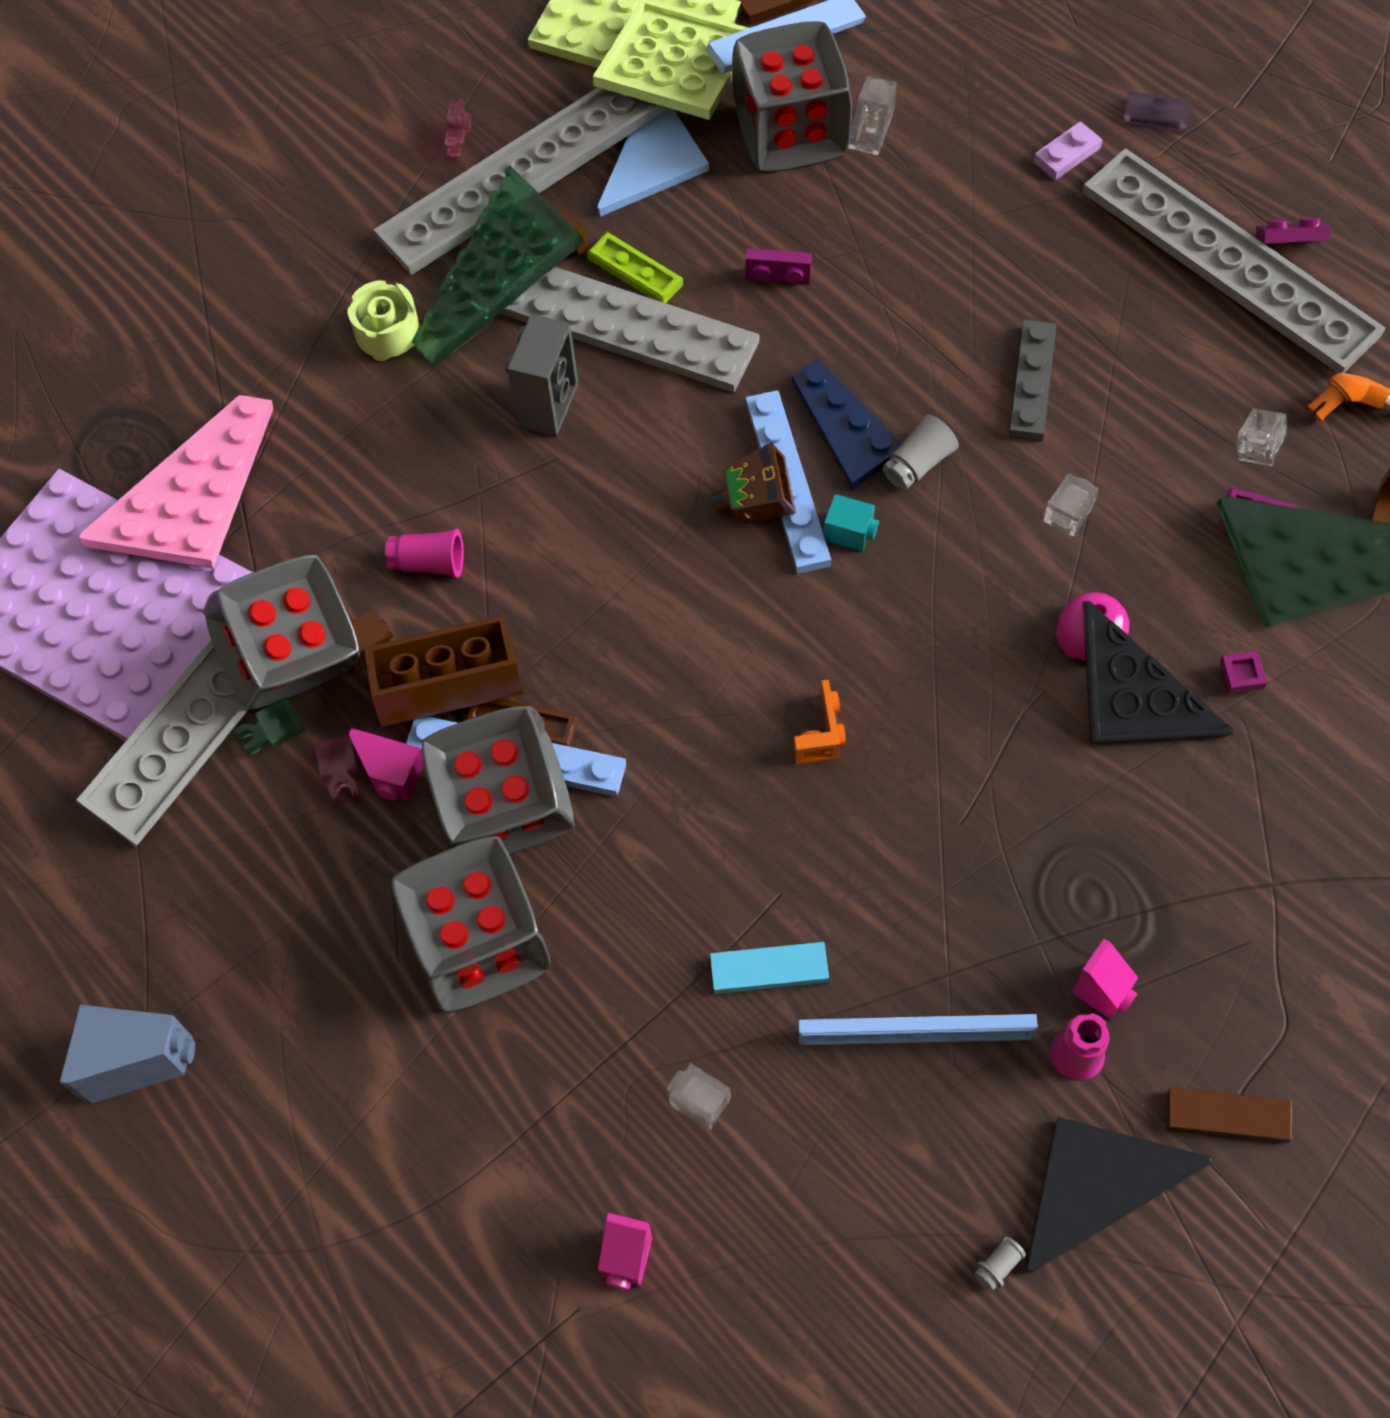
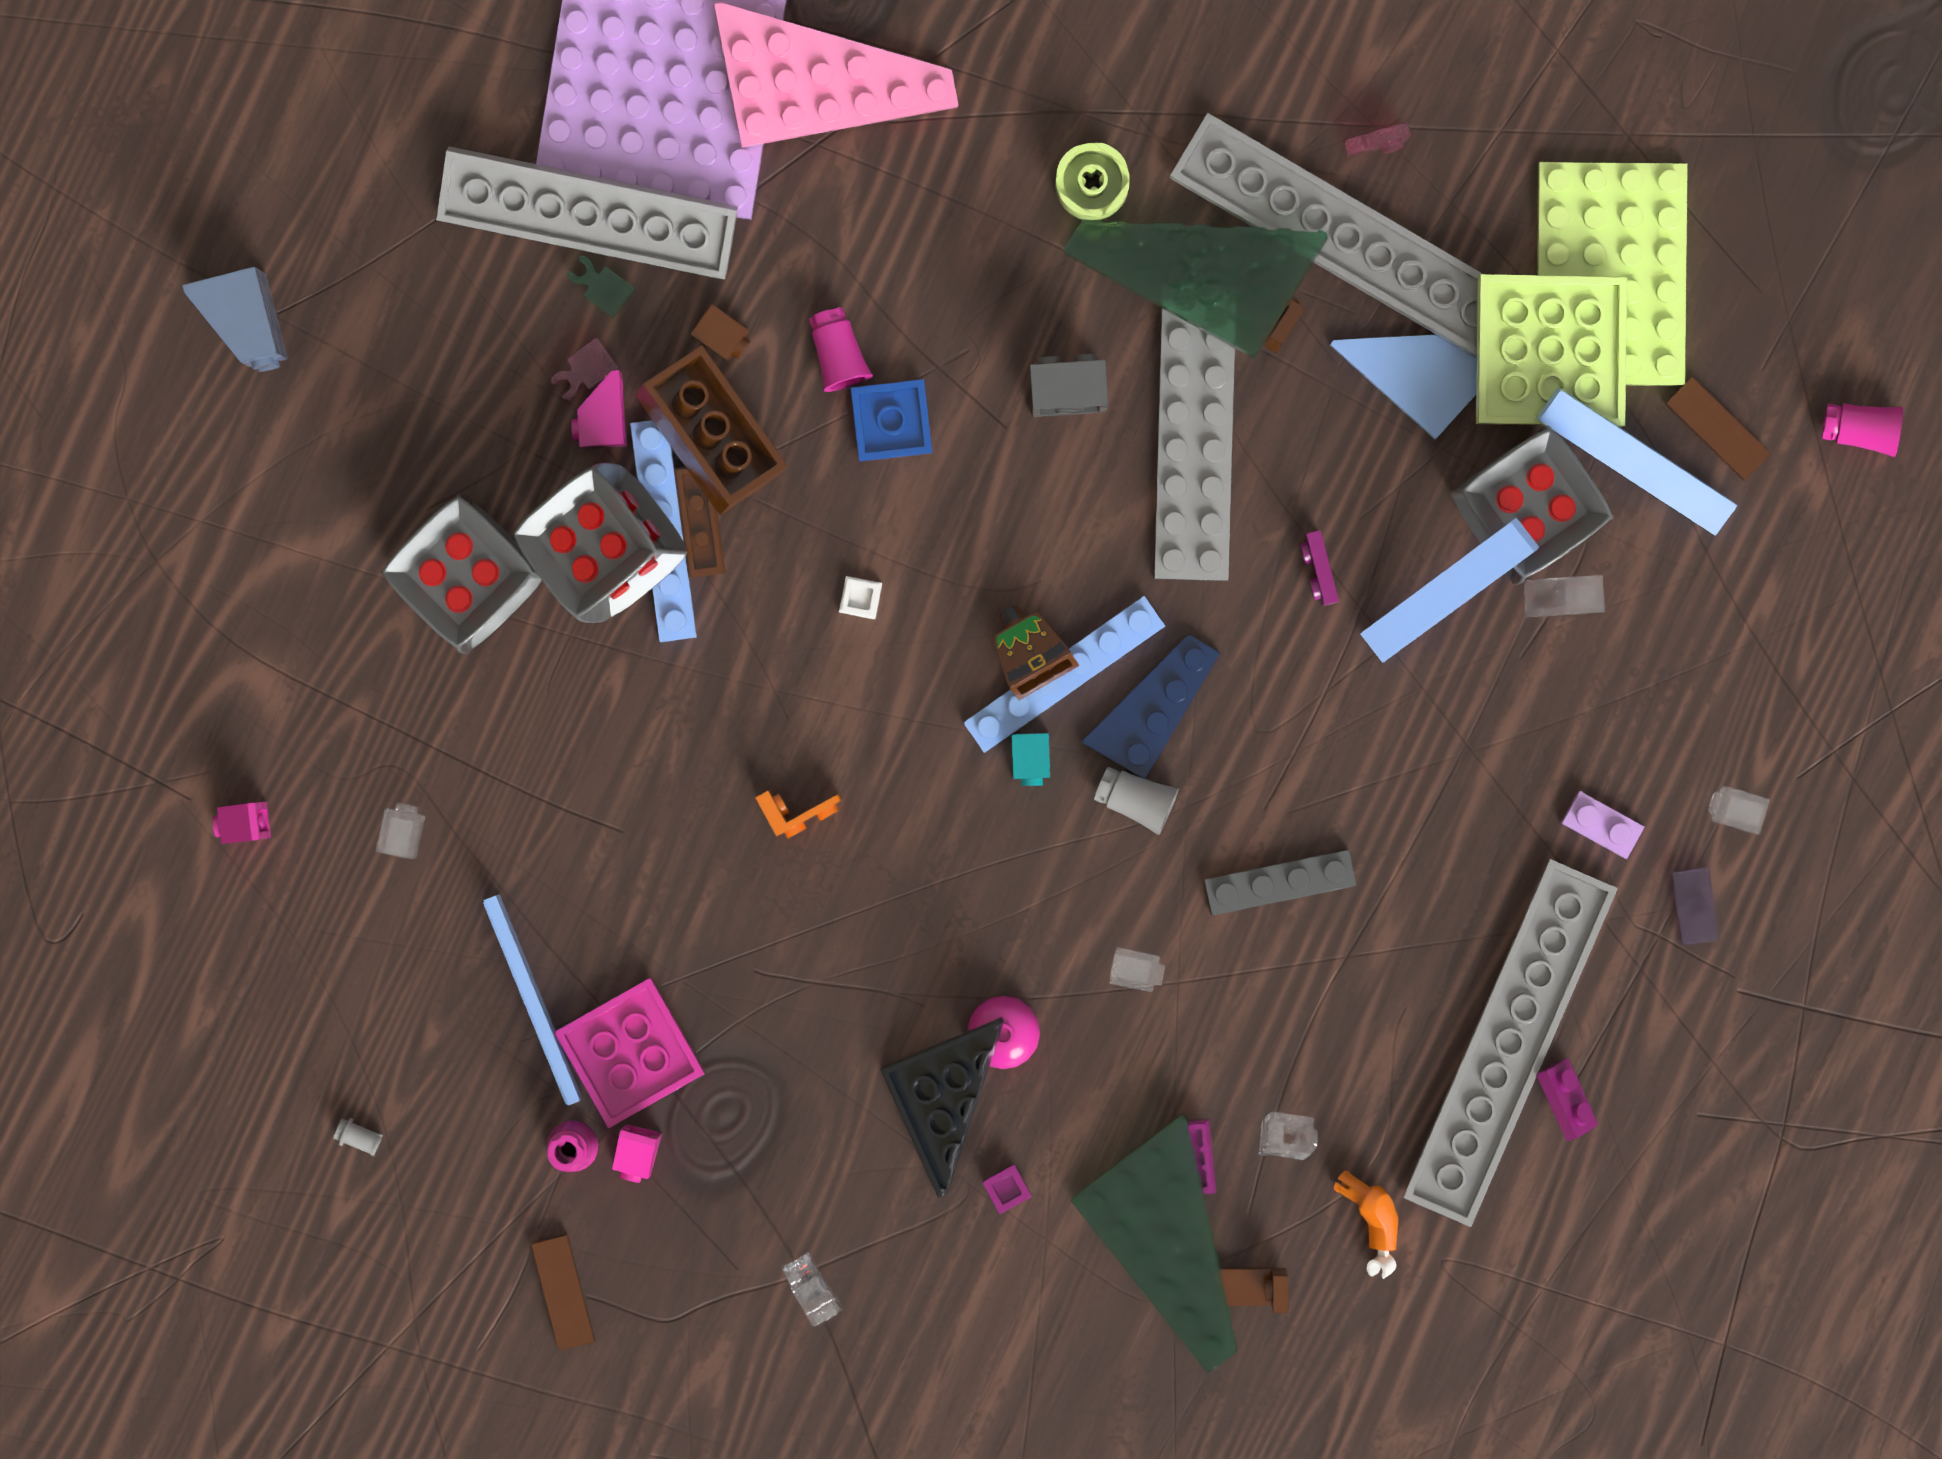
camera: 65 degrees right, 25 degrees up
(281, 631) = (672, 268): dark grey piece -> none
(506, 535) = (891, 420): none -> blue plate
(635, 268) = (1270, 413): lime tile -> none
(650, 615) = (860, 597): none -> white tile
(769, 967) = (544, 848): medium azure tile -> none
(836, 157) = (1450, 590): none -> light blue tile
(1002, 957) = (629, 1052): none -> dark pink plate
(1090, 57) = (1738, 809): none -> clear brick
(1098, 1180) = (463, 1197): black tile -> none
(1295, 871) = (812, 1290): none -> clear leg

